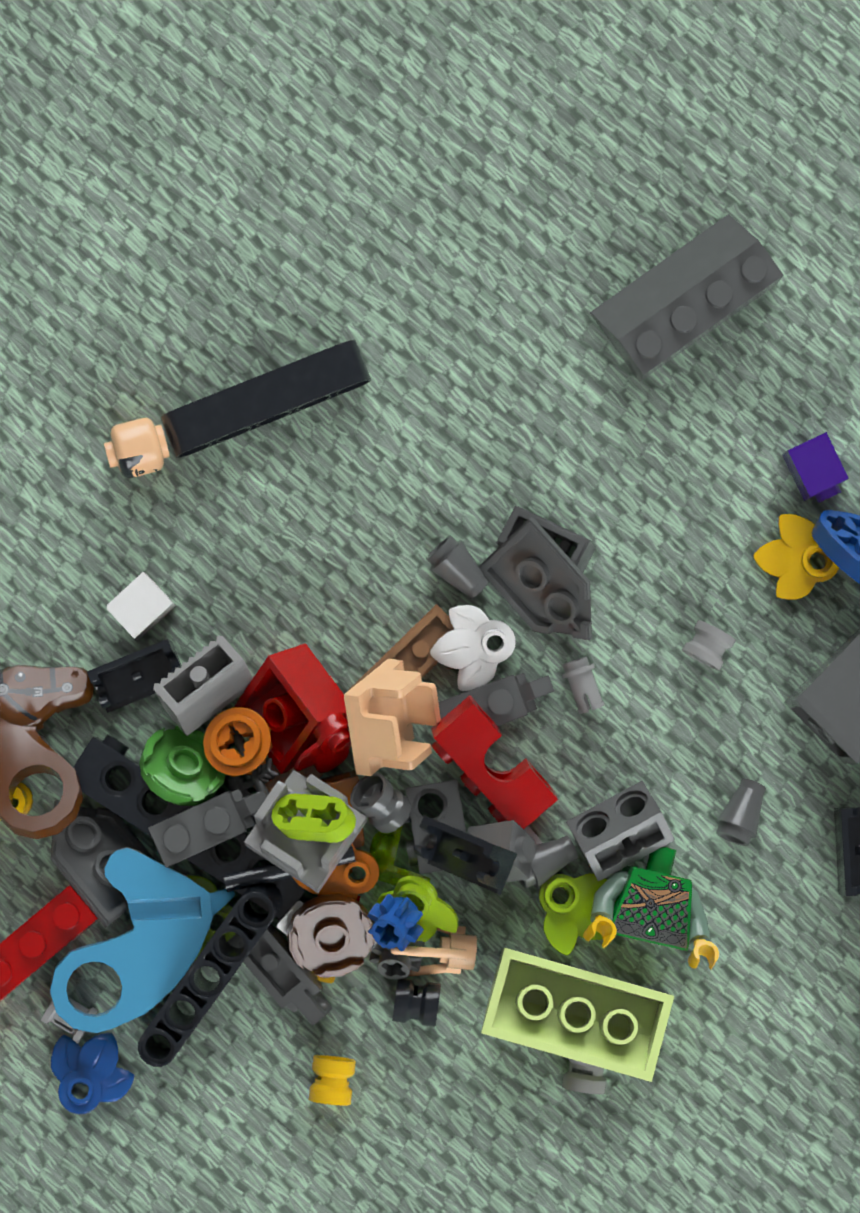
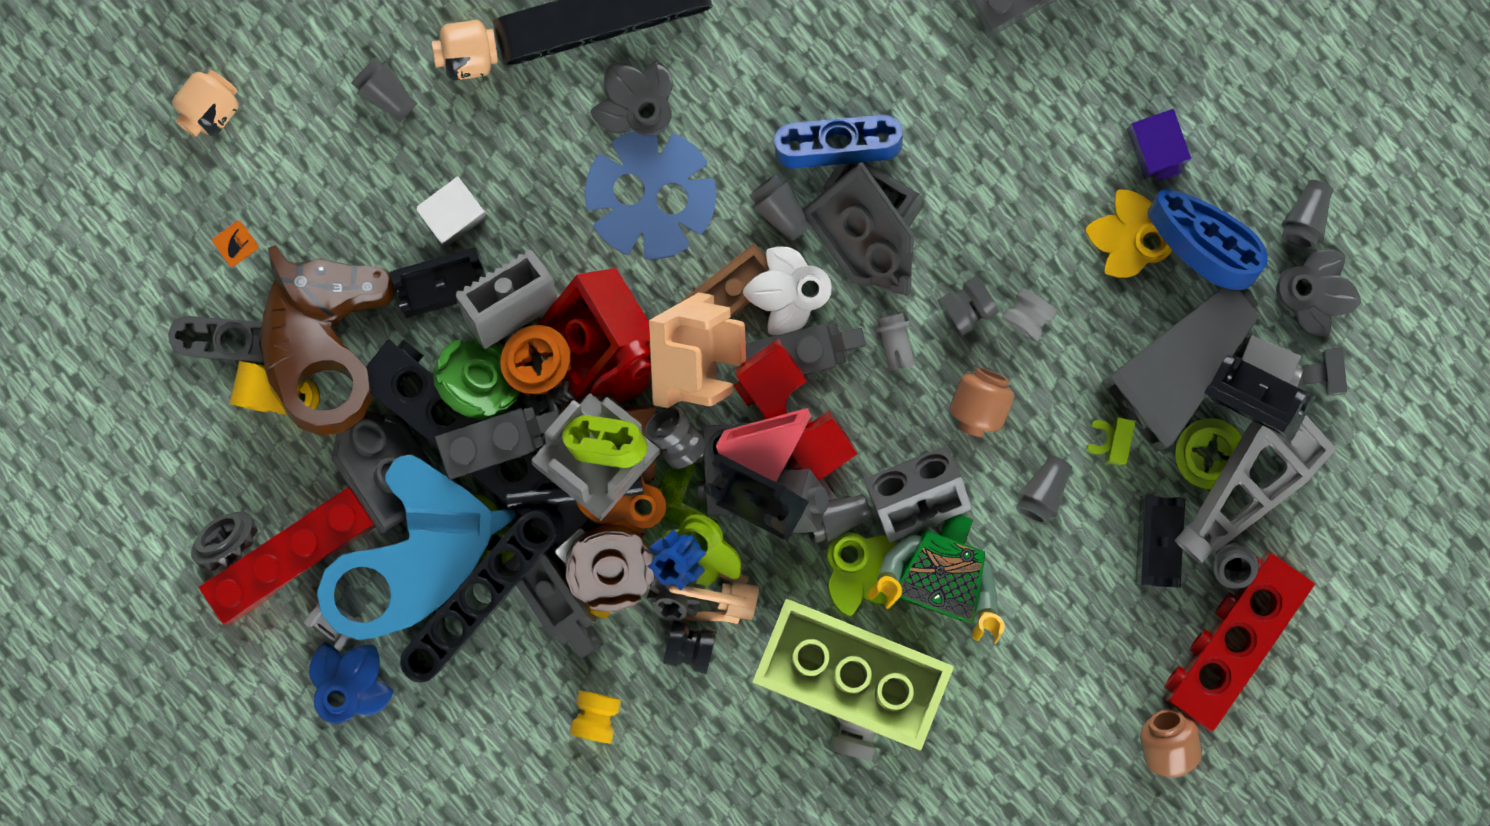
camera: 10 degrees right, 0 degrees up
(62, 494) = (383, 89): none -> dark grey cone
(301, 473) = (630, 95): none -> dark grey plate
(317, 533) = (660, 230): none -> medium blue piece
(468, 801) = (764, 444): none -> coral slope
(516, 482) = (854, 153): none -> blue beam
(642, 650) = (959, 311): none -> dark grey wheel
(672, 734) = (982, 402): none -> nougat head
(807, 758) = (1117, 440): none -> lime tile

